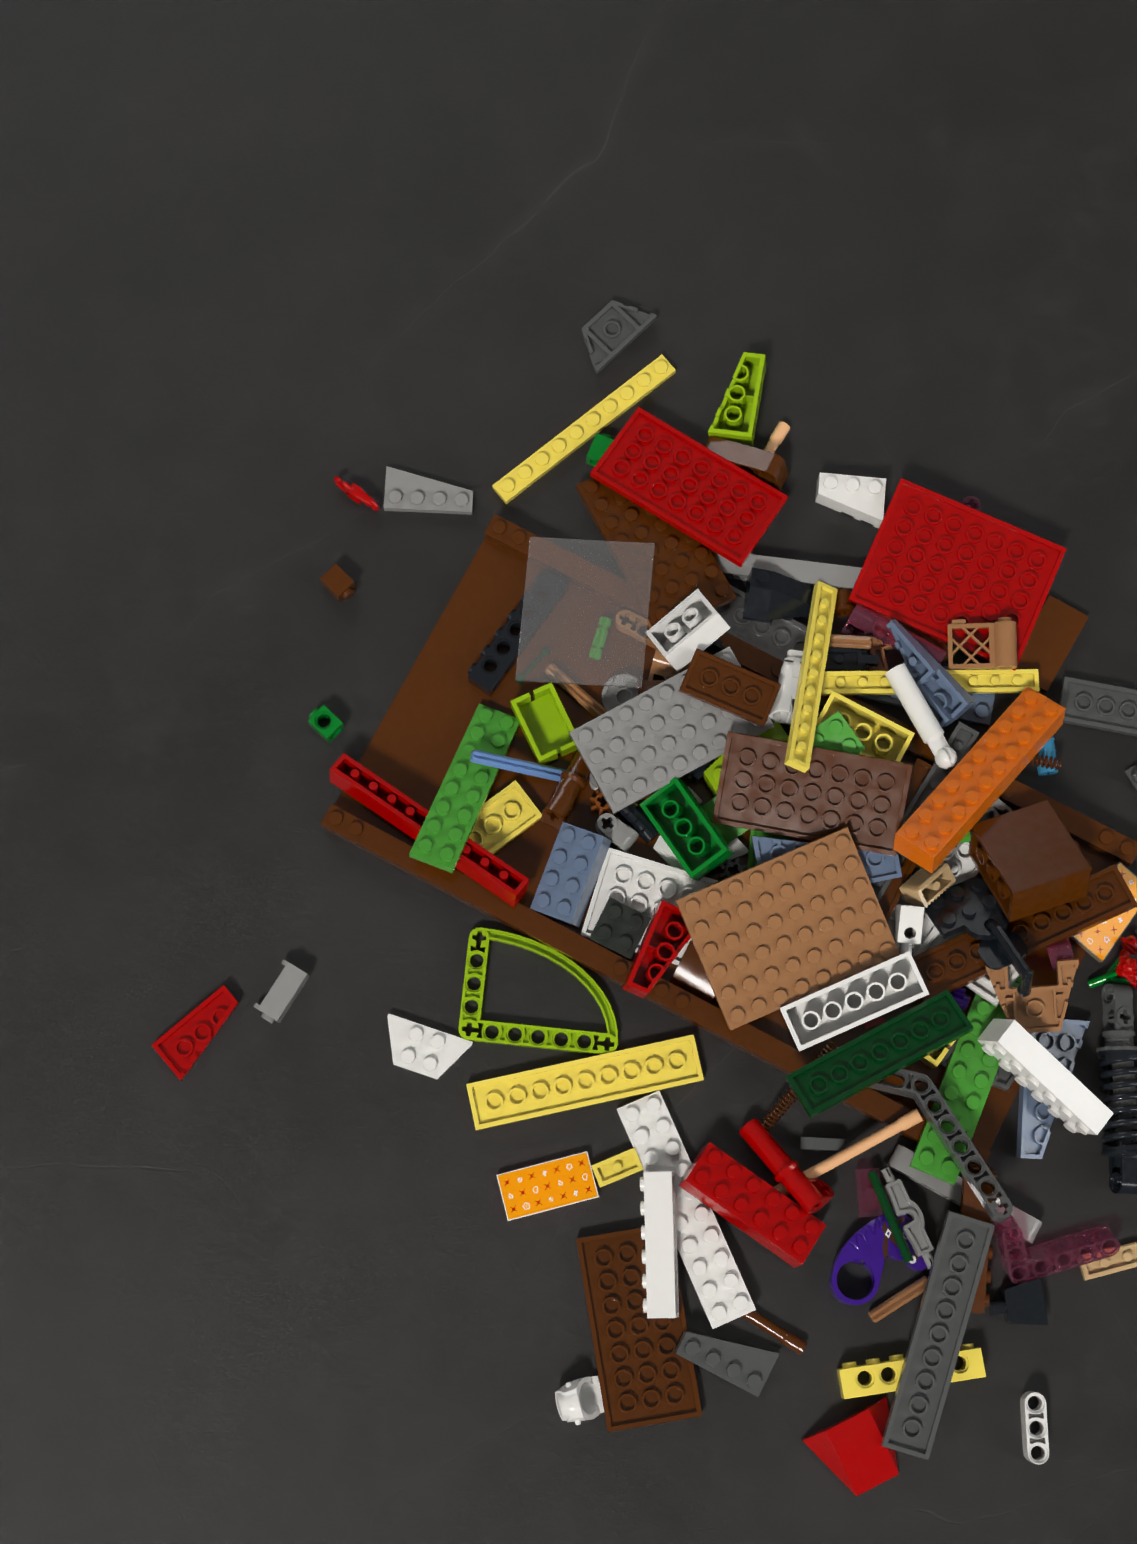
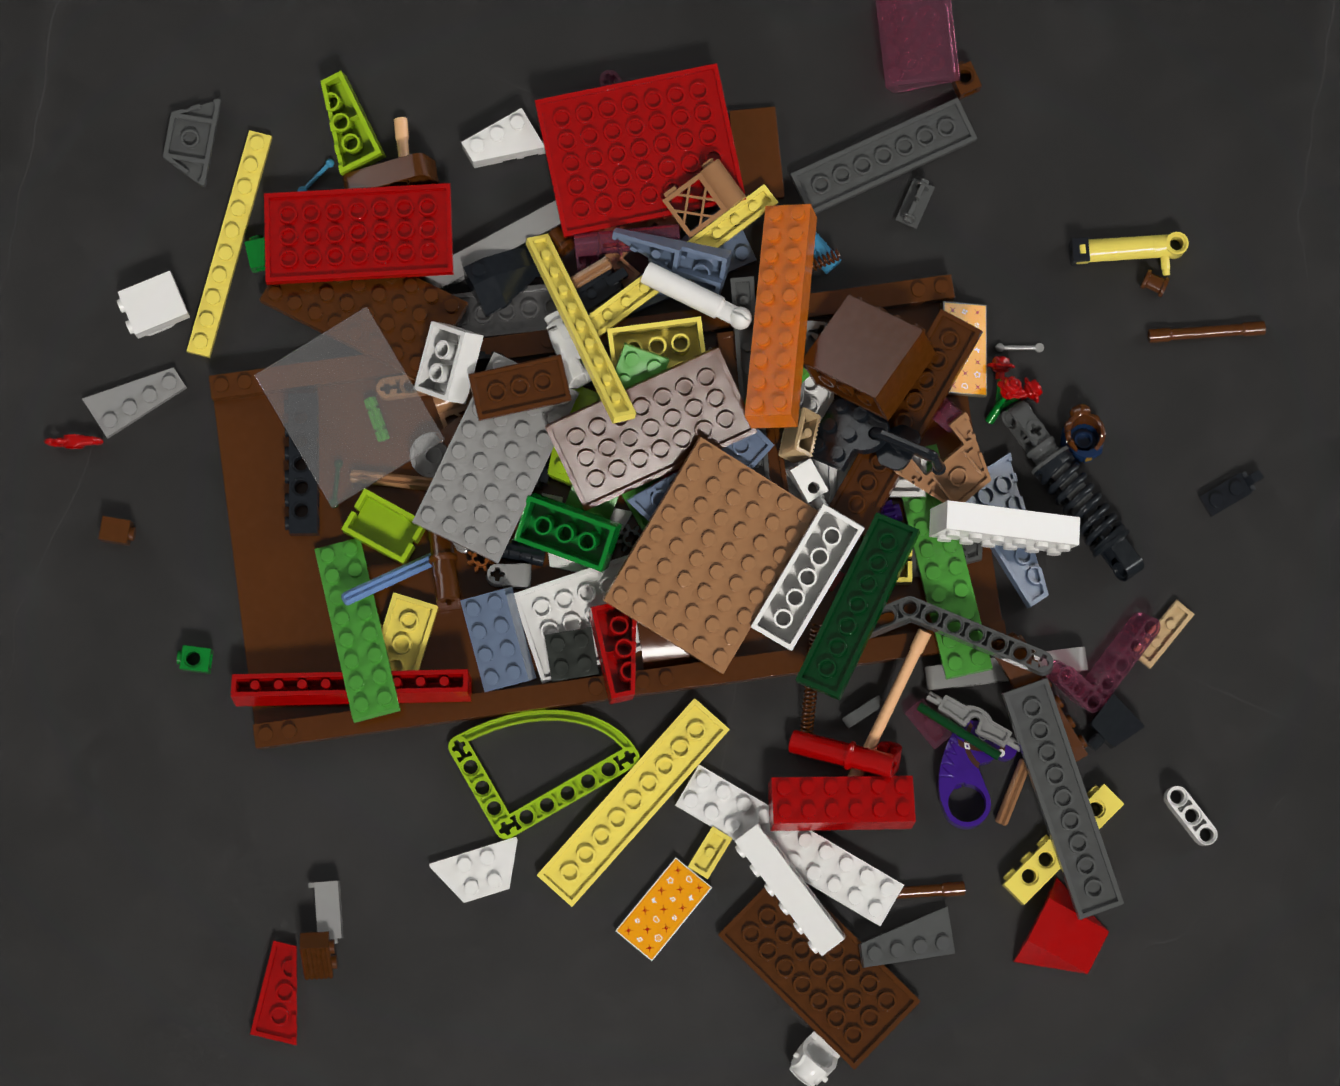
camera: 40 degrees left, 5 degrees up
(248, 1021) = (317, 955): none -> reddish brown brick
(491, 433) = (152, 305): none -> white brick
(705, 421) = (329, 163): none -> dark azure hinge

